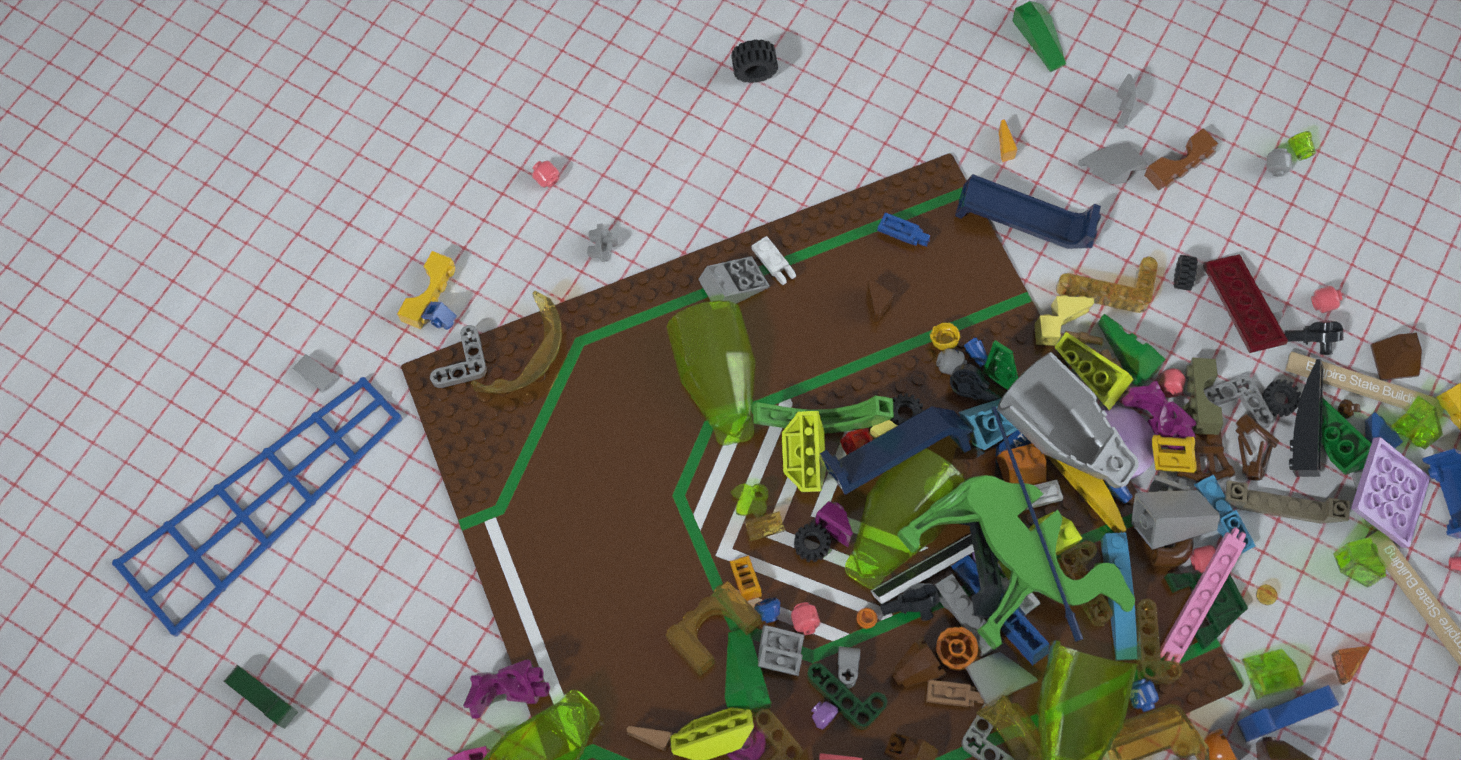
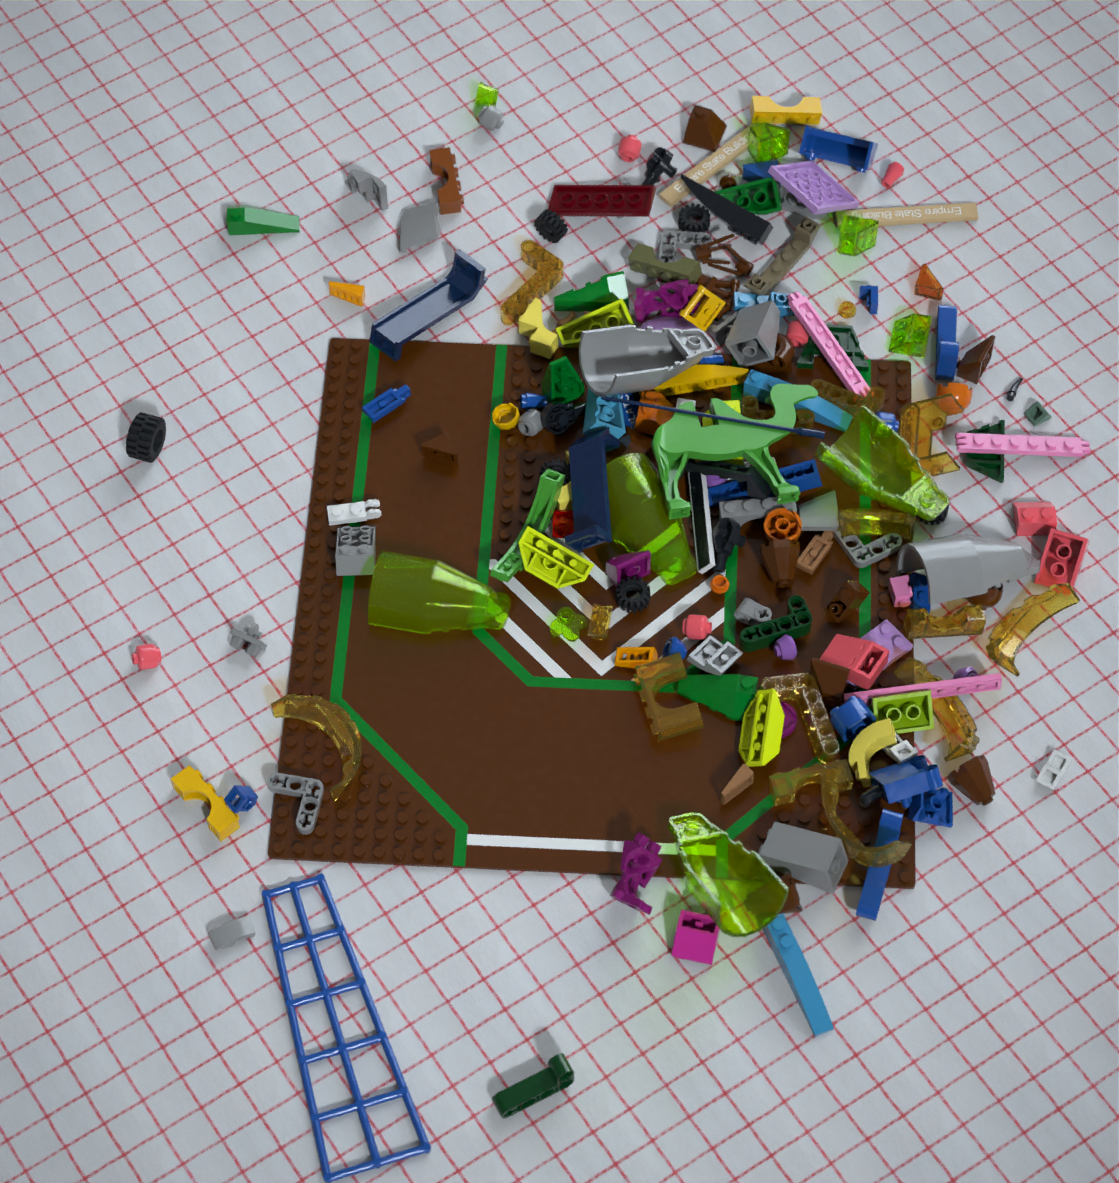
camera: 65 degrees left, 10 degrees down
(1172, 382) = (638, 279): coral head -> none
(1298, 611) = (870, 294): none -> blue bracket

